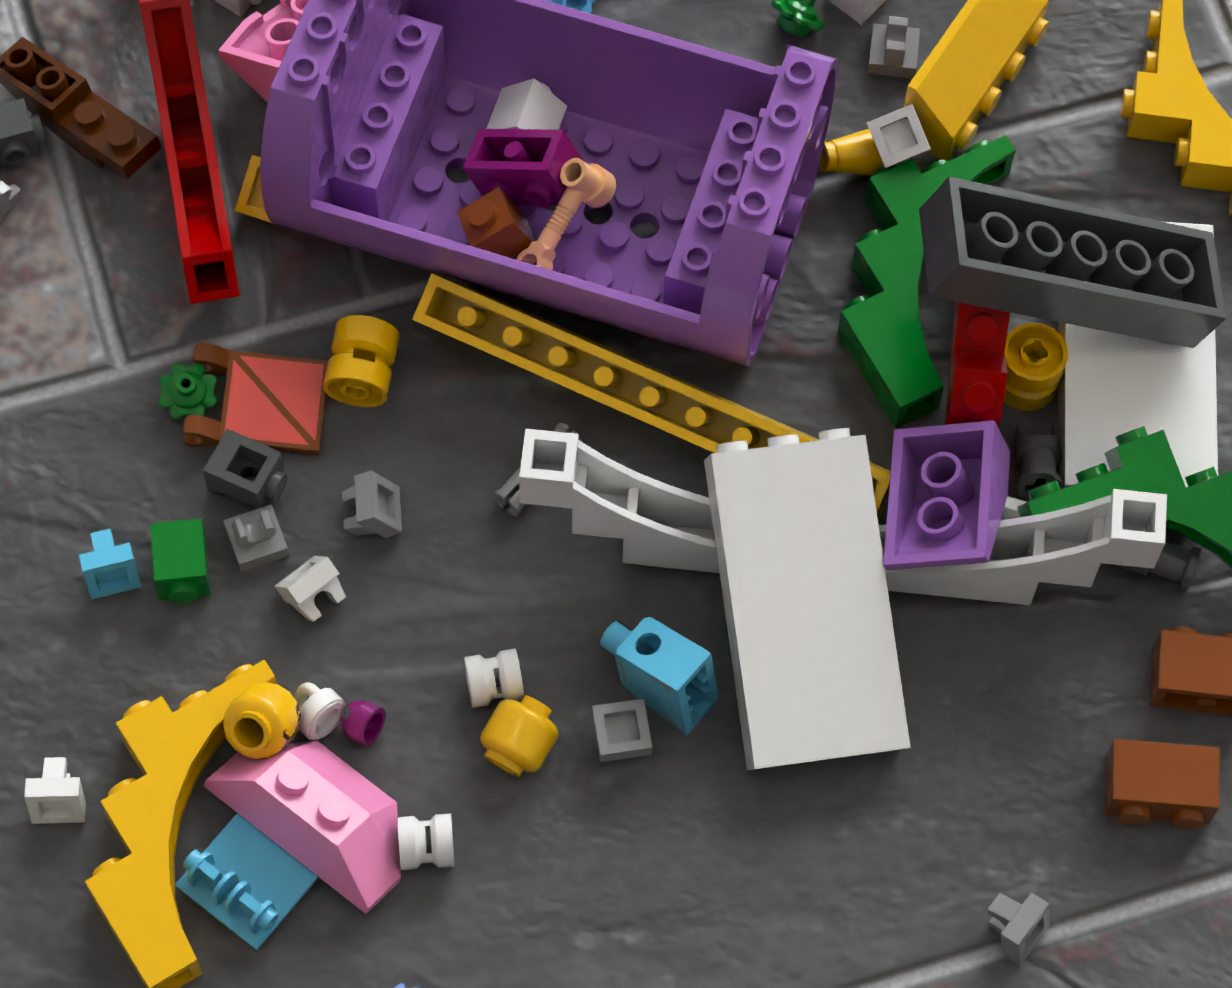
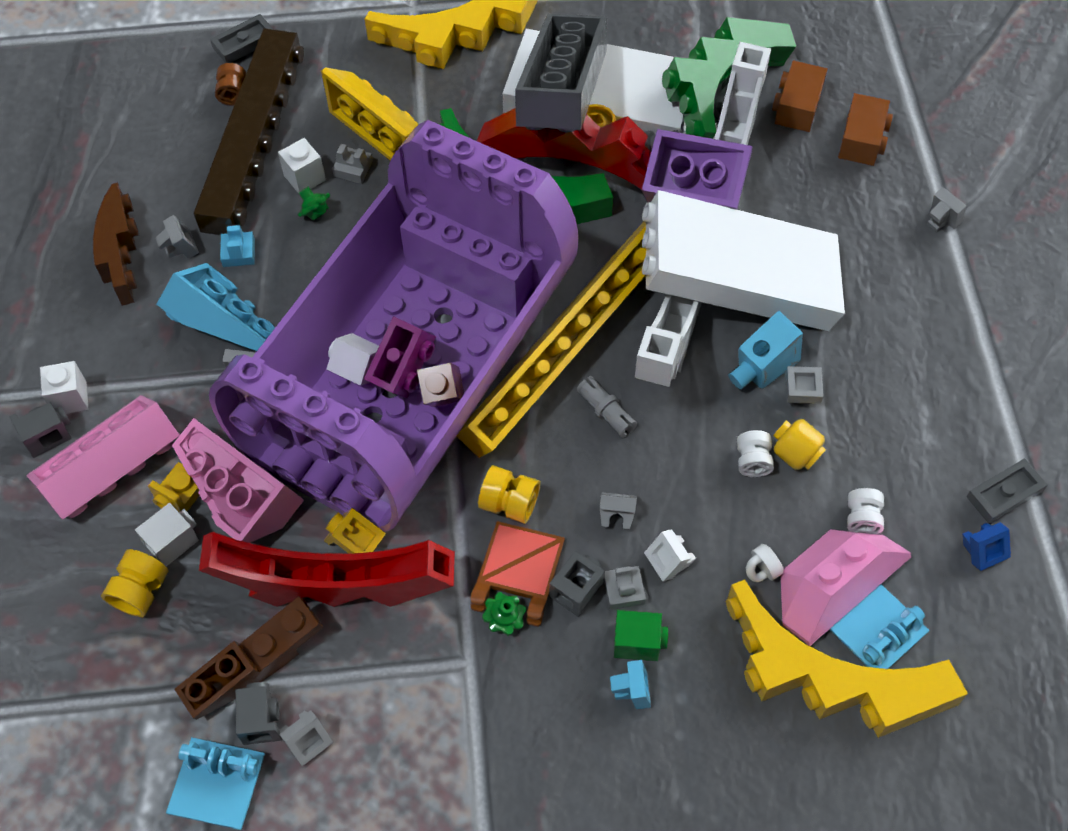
camera: 75 degrees left, 5 degrees down
(55, 795) = (806, 745): white tile -> none
(262, 720) = (778, 591): yellow head -> none
(363, 722) = (775, 537): magenta hinge -> none
(584, 184) = (445, 338): light nougat brick -> none

